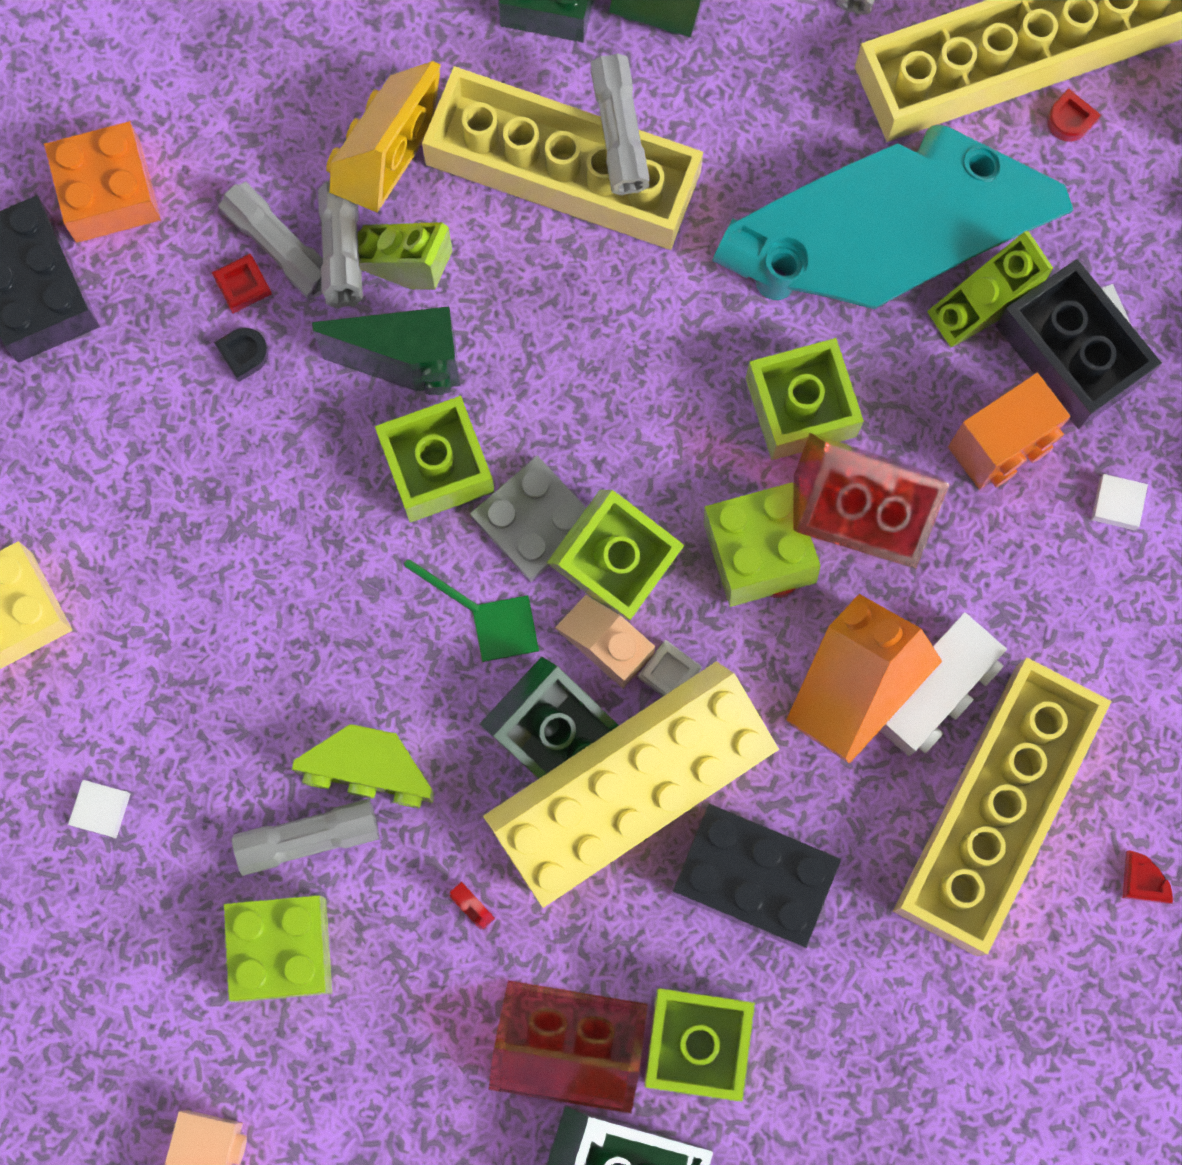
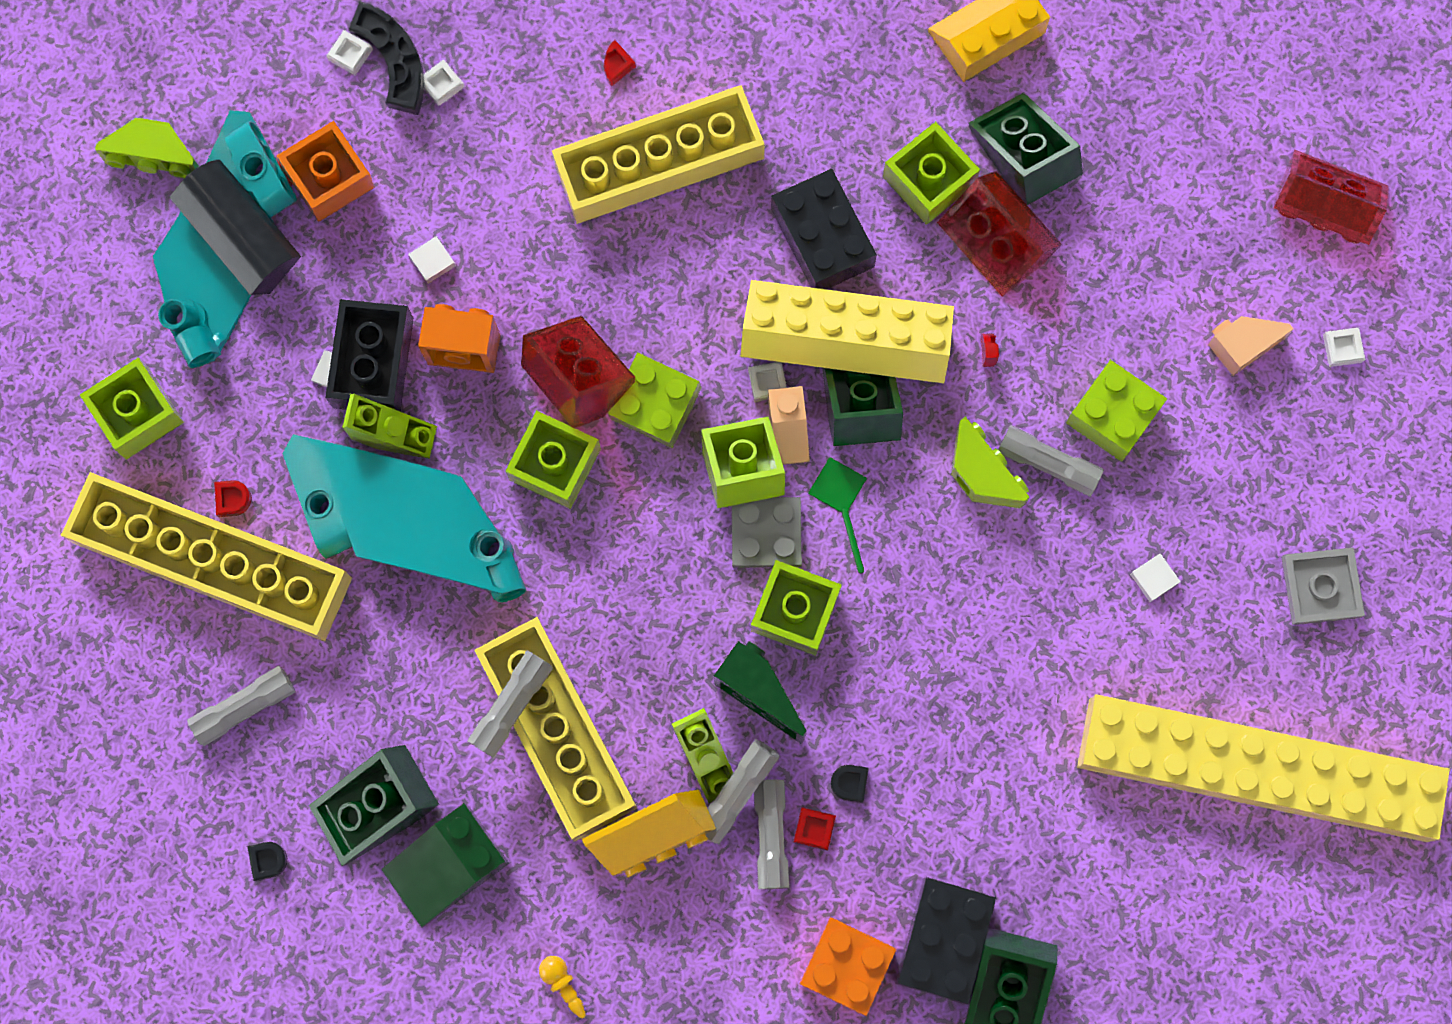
camera: 135 degrees left, 0 degrees up
(861, 677) = (672, 279): orange slope -> none
(967, 657) = (629, 246): white brick -> none

